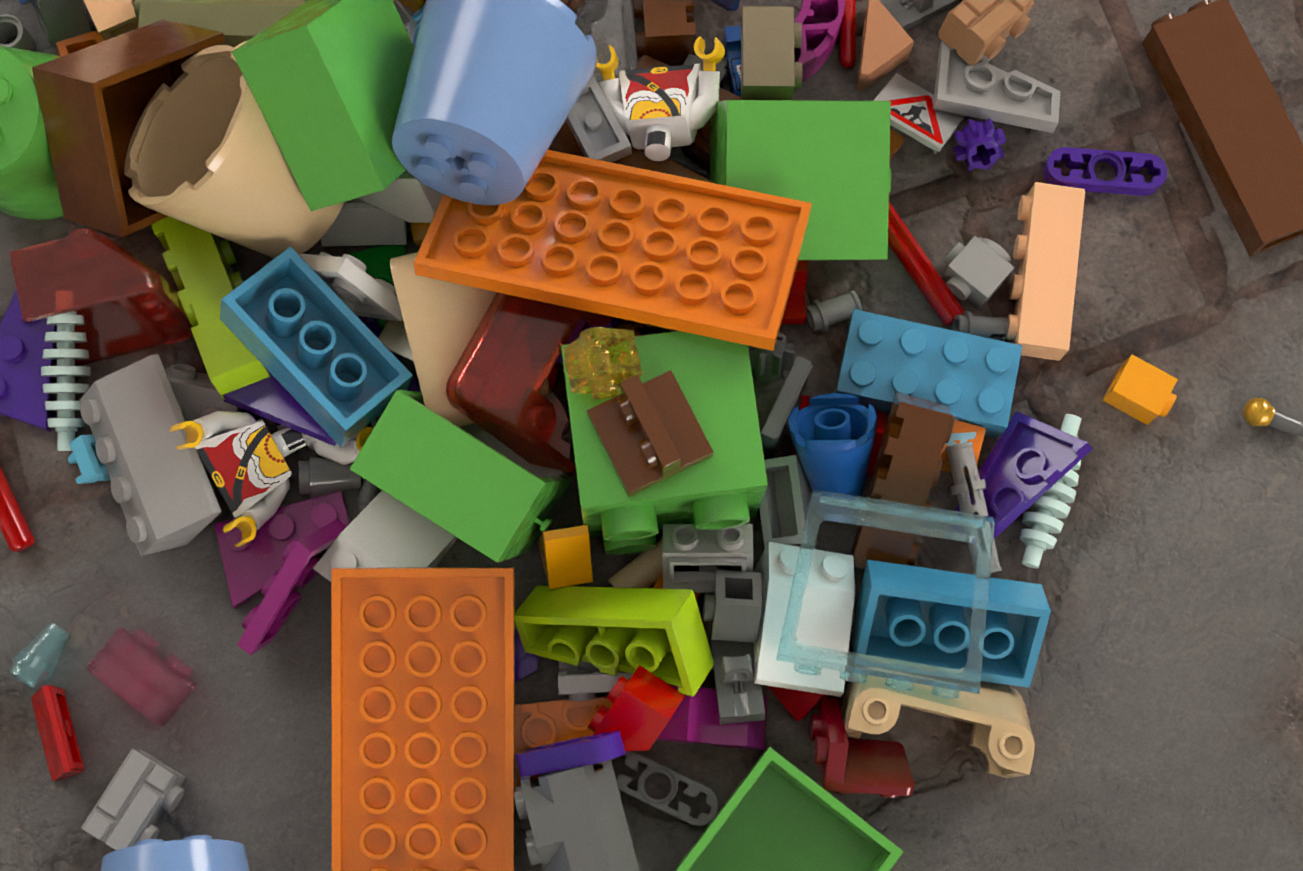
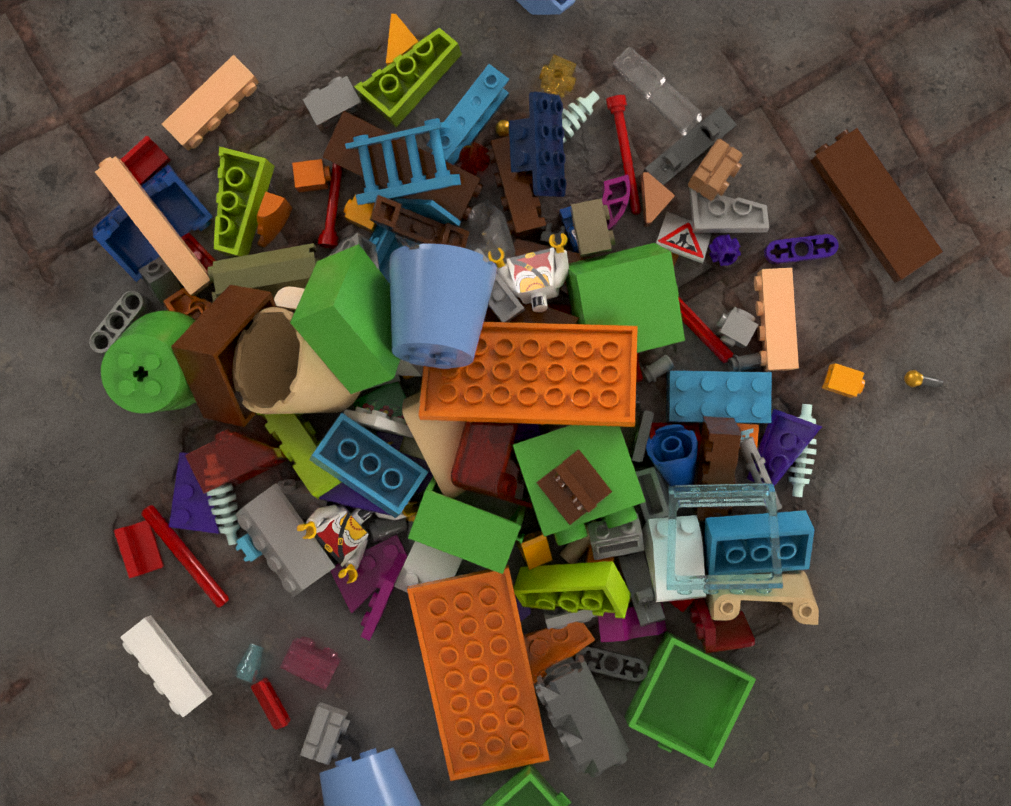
camera: 10 degrees left, 10 degrees up
(570, 753) = (562, 662): dark purple beam -> none
(601, 361) = (539, 455): clear yellow brick -> none
(638, 709) = (593, 634): red slope -> none
(734, 606) = (636, 562): dark grey brick -> none

